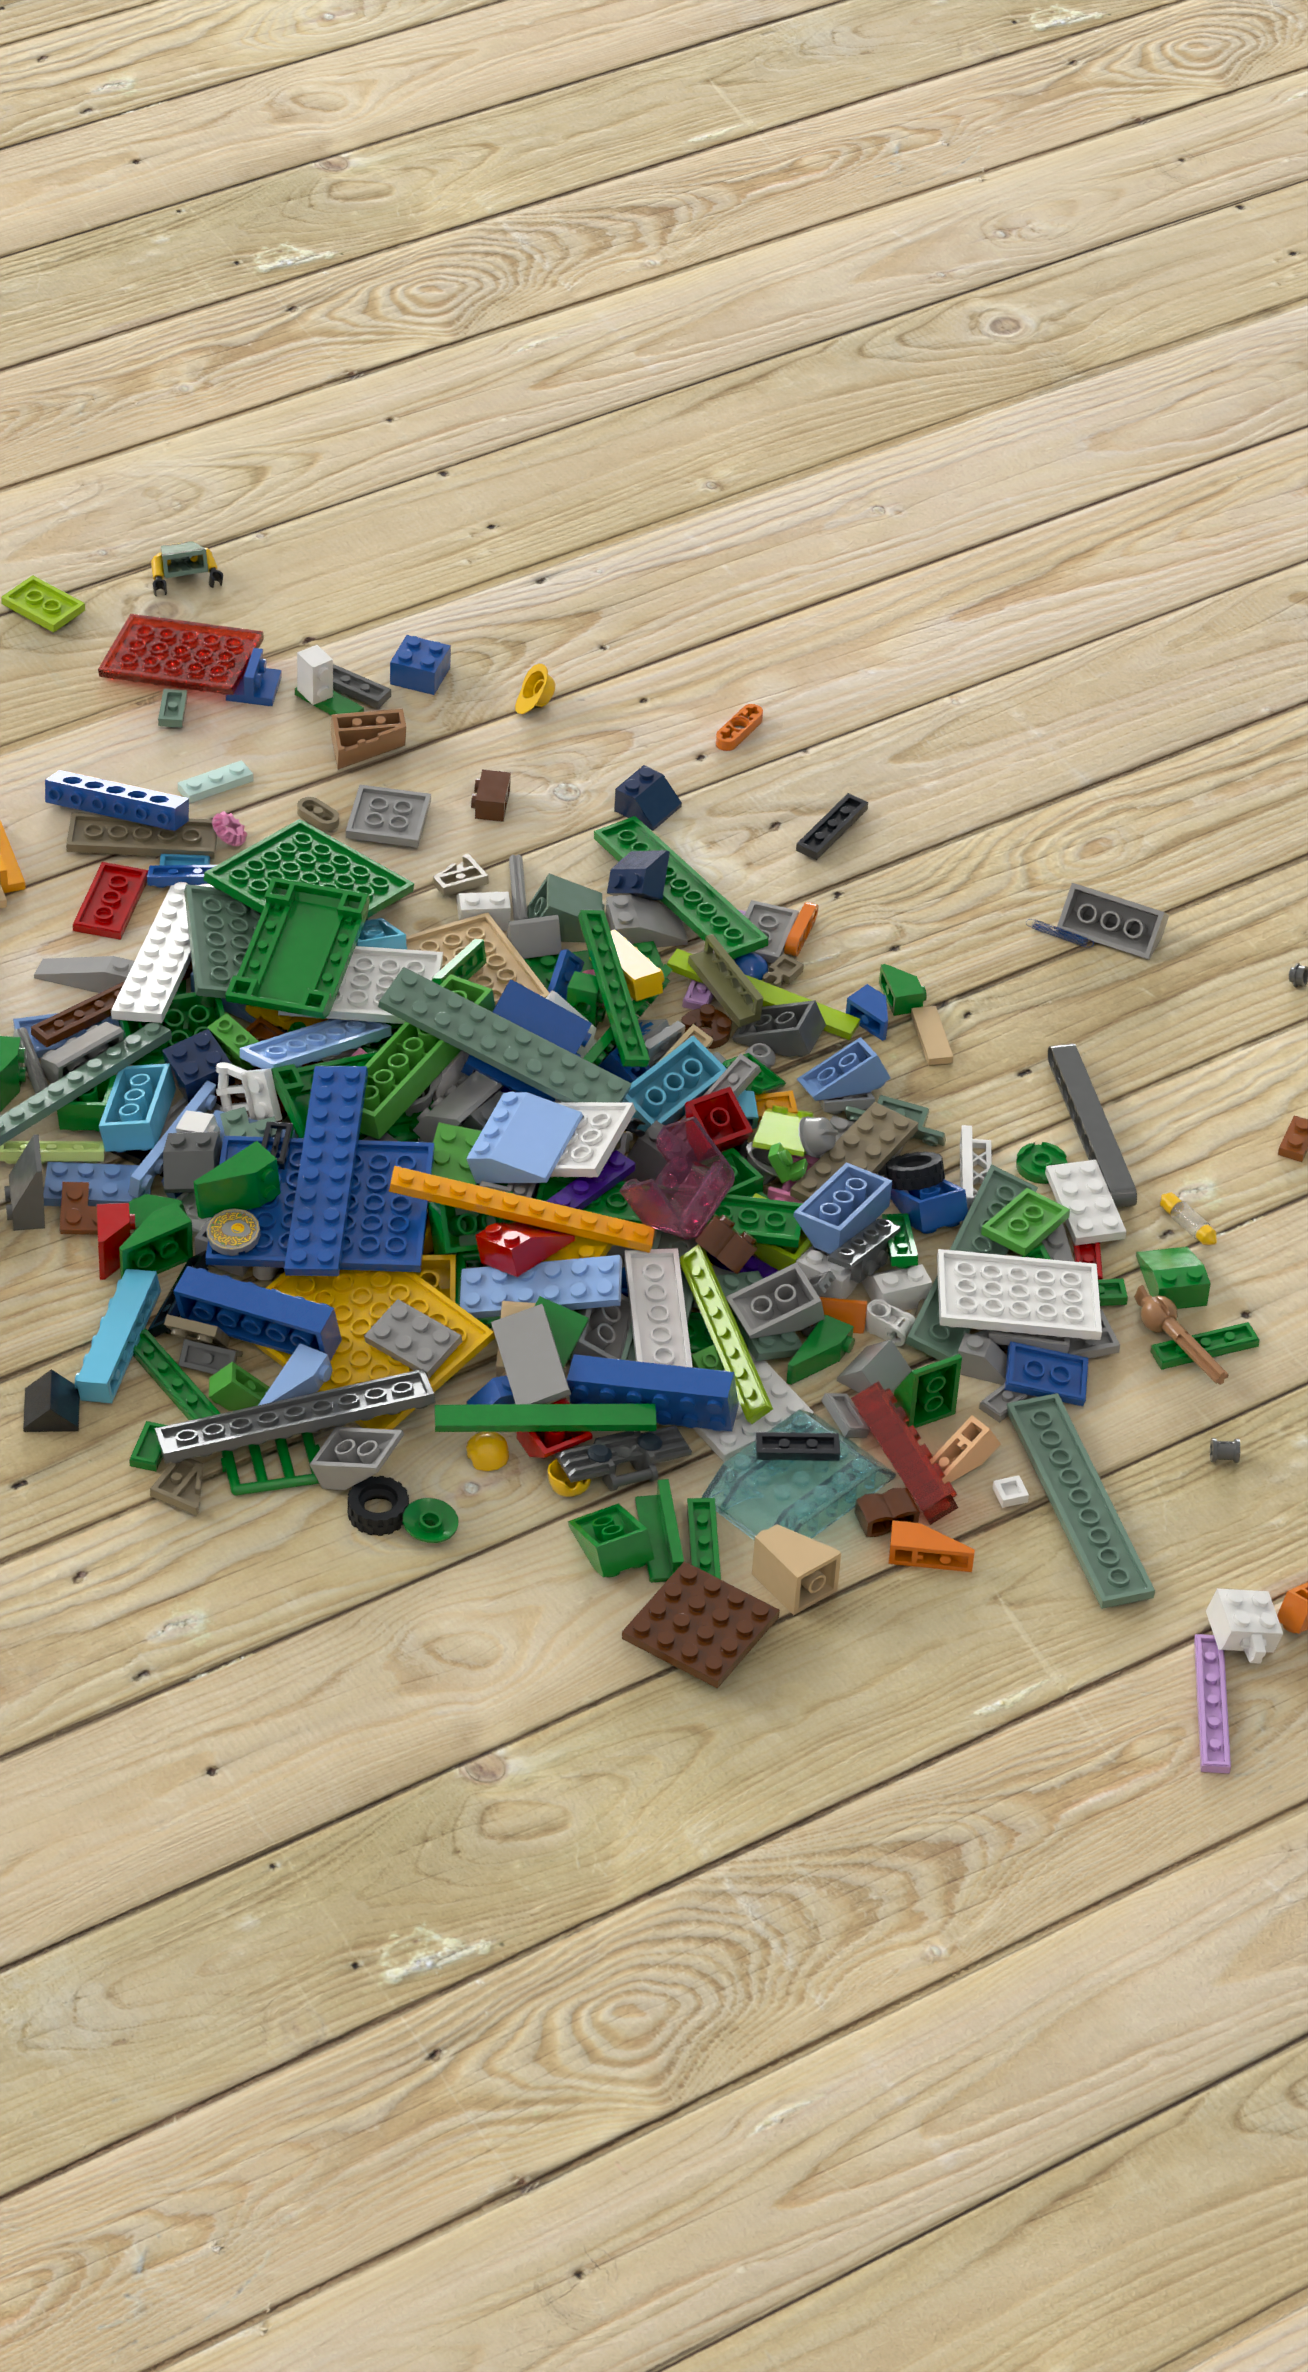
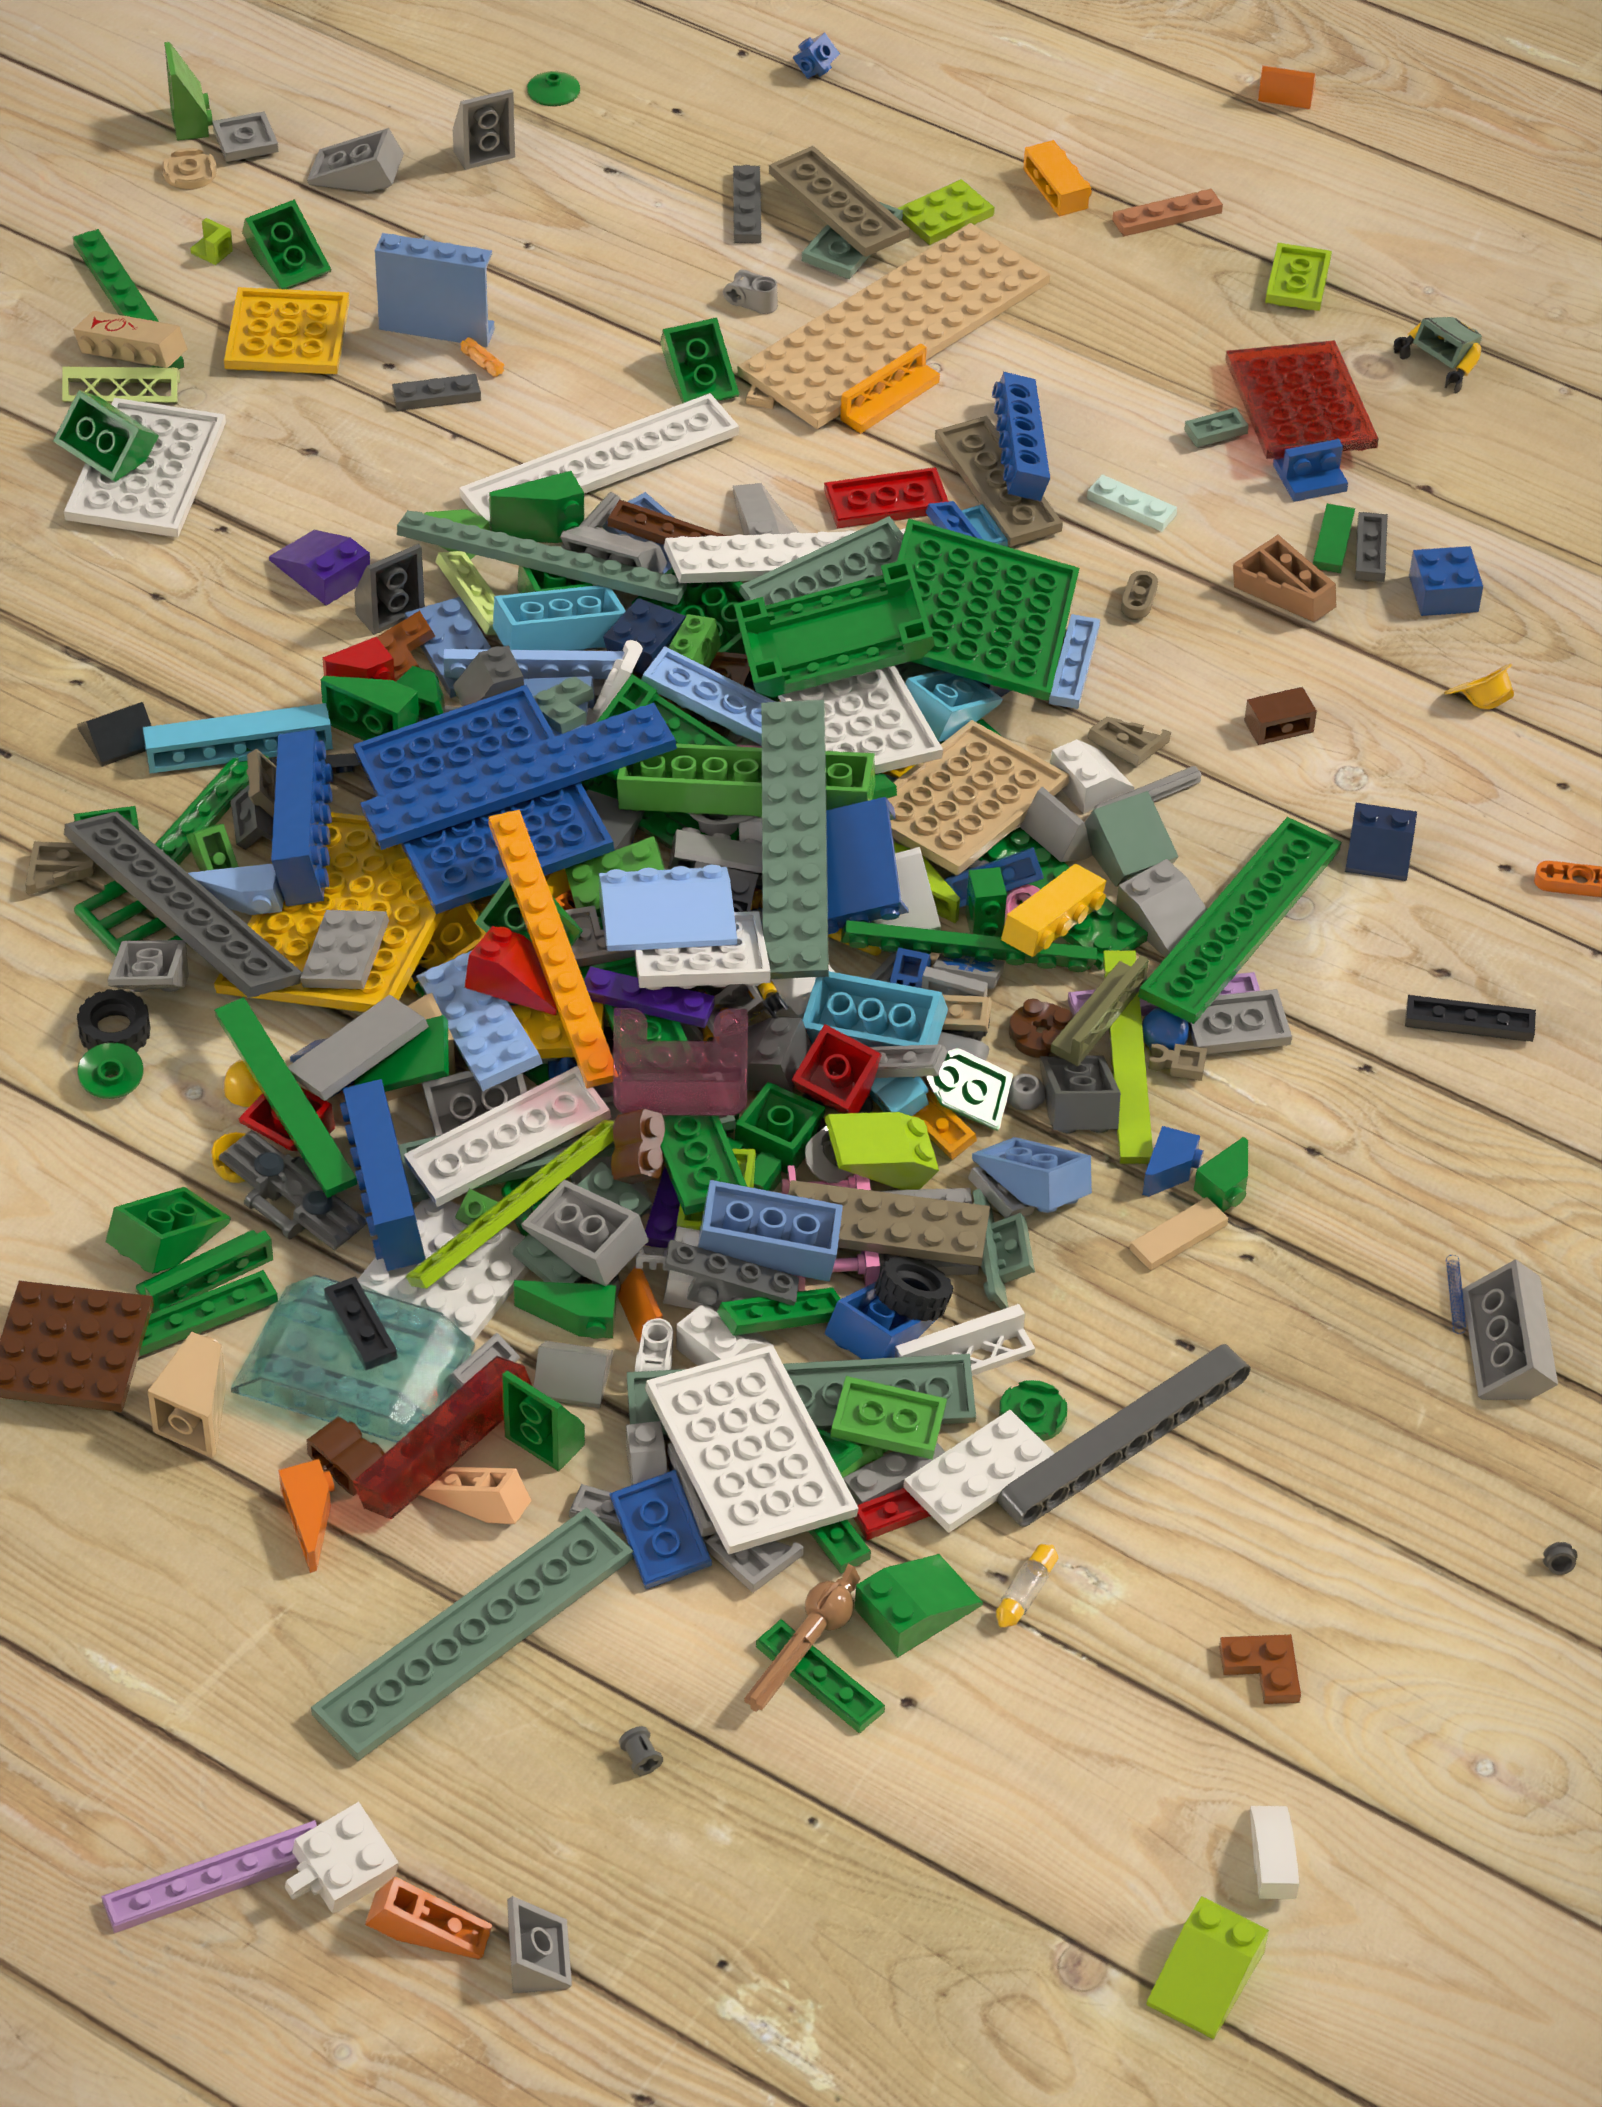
camera: 65 degrees right, 5 degrees up
(197, 1122) = (540, 669): white brick -> none
(233, 1232) = (393, 746): tile -> none
(234, 833) = (1043, 537): bright pink gear -> none
(238, 1183) = (443, 713): green slope -> none
(281, 1162) = (531, 725): black tile -> none
(315, 674) = (1335, 499): white brick -> none
(388, 816) = (1181, 648): light grey plate -> none
(465, 963) = (927, 772): green plate -> none
(613, 988) = (986, 905): green plate -> none
(640, 875) = (1217, 871): dark blue slope -> none
(783, 1164) = (816, 1156): bright green bracket -> none
(801, 929) = (1236, 1051): orange beam -> none
(817, 1135) = (881, 1166): light grey piece -> none
(1010, 1491) = (448, 1561): white plate -> none

